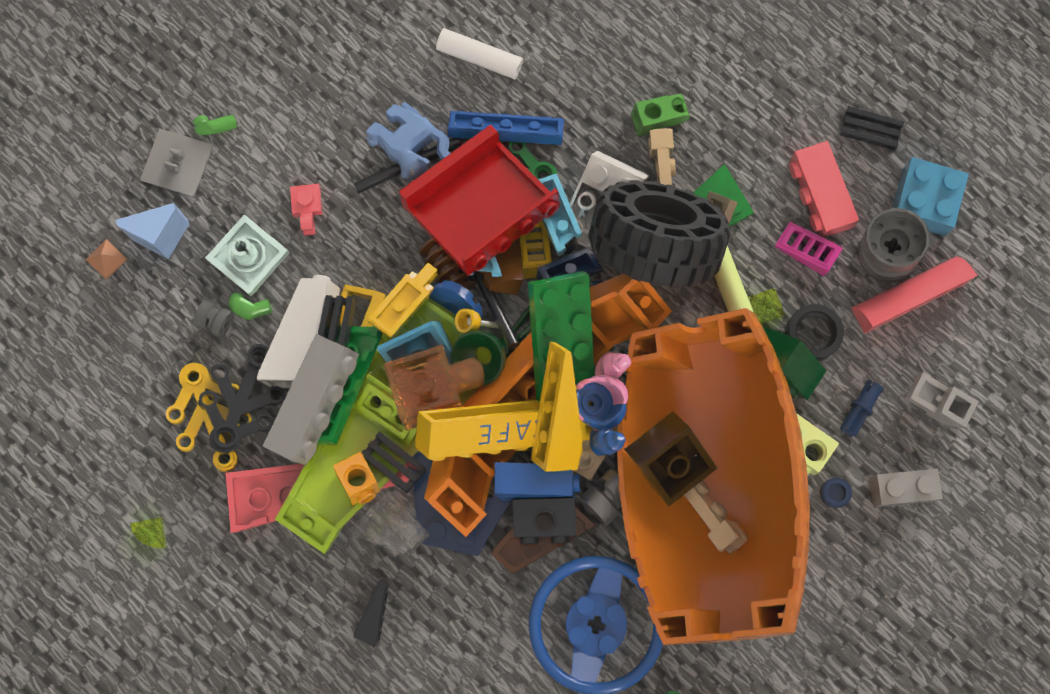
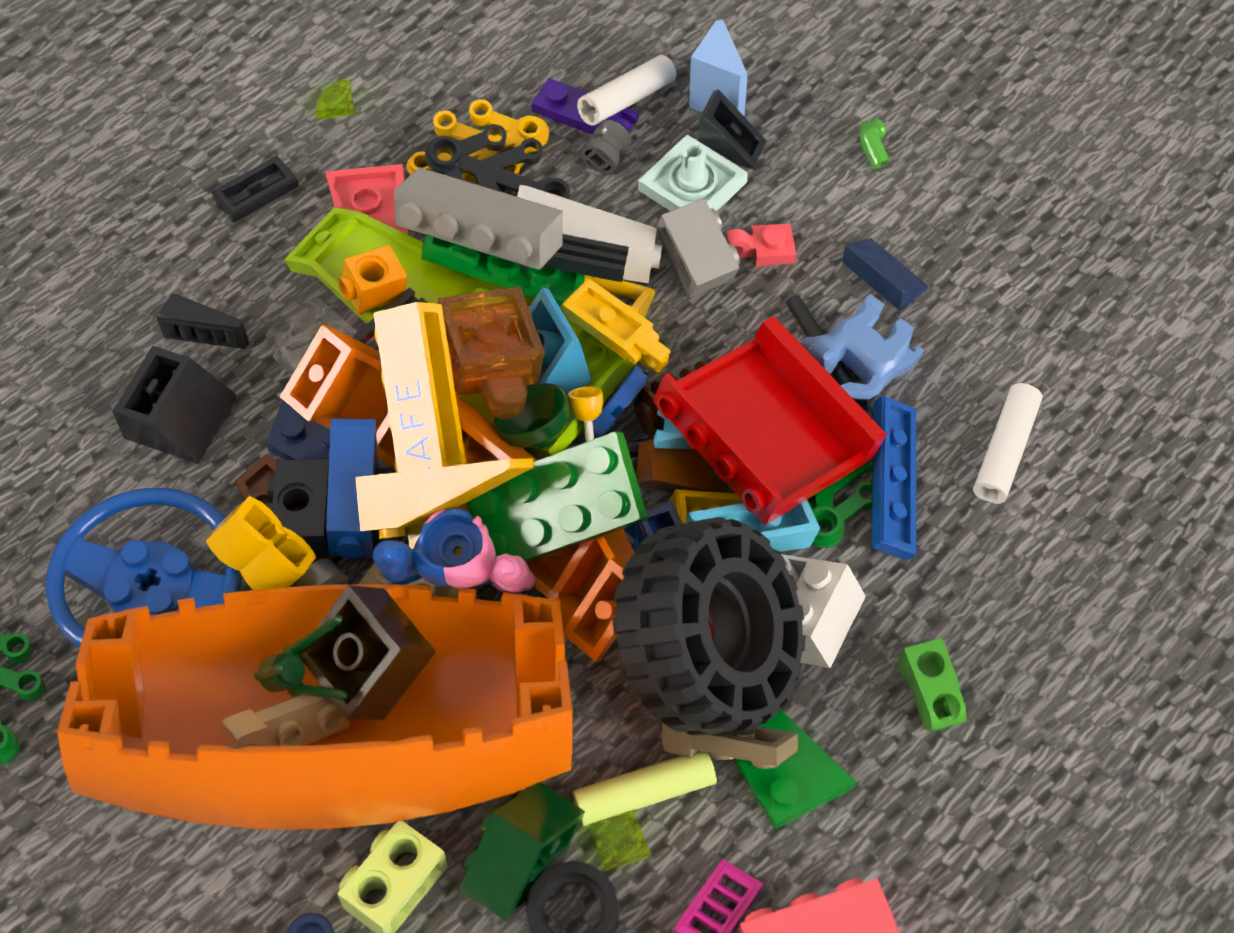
camera: 90 degrees right, 20 degrees down
(106, 259) = (683, 45): nougat slope -> none
(161, 301) = (626, 90): none -> white piece
(170, 339) = (560, 102): none -> dark purple hinge
(176, 162) = (820, 110): light grey piece -> none
(205, 226) = (729, 132): none -> black slope
(246, 309) = (617, 188): bright green arm -> none
(253, 611) = (258, 192): none -> black tile
(317, 249) = (698, 247): none -> light grey brick
(333, 125) = (883, 272): none -> dark blue slope
(450, 624) = (173, 405): none -> black slope
(589, 539) = (260, 547): none -> yellow brick
(661, 148) = (844, 689): tan plate -> none
(682, 514) = (287, 670): none -> dark green plant

